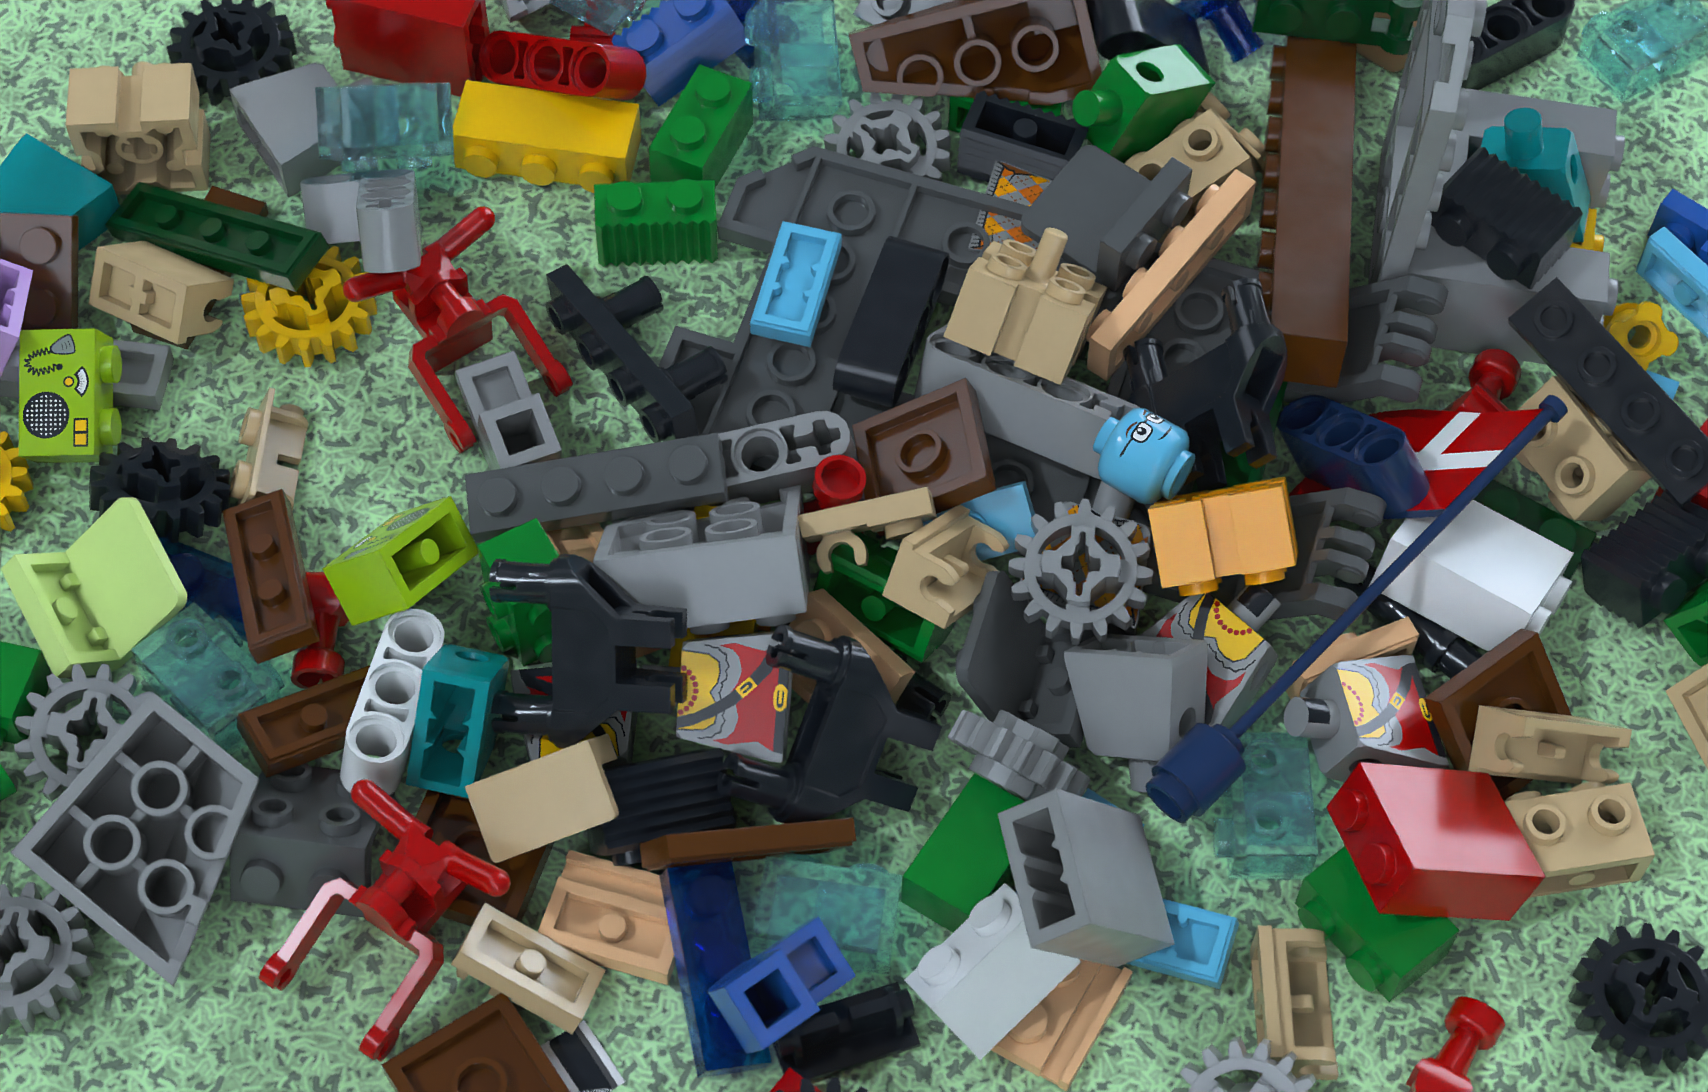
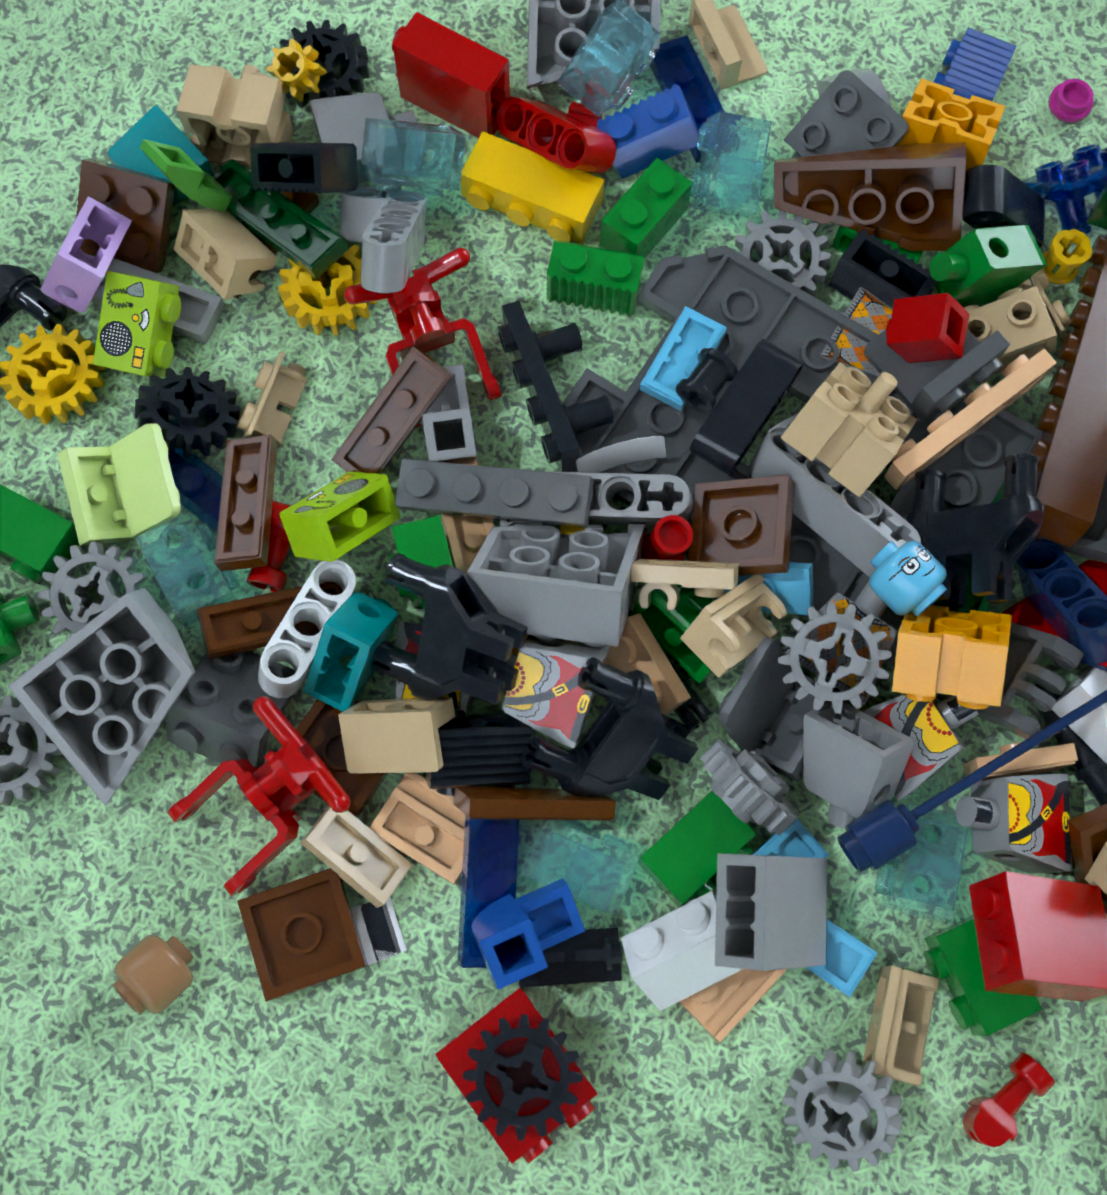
camera: 15 degrees right, 15 degrees up
(92, 201) = (186, 175): none -> bright green slope
(214, 40) = (308, 76): none -> yellow gear
(248, 160) = (304, 167): none -> black brick
(438, 429) = (393, 414): none -> tile
(754, 406) = (622, 453): none -> white sticker
(832, 295) = (706, 380): none -> black bush
(1088, 175) = (927, 328): none -> red brick
(1230, 67) = (1069, 261): none -> yellow bush

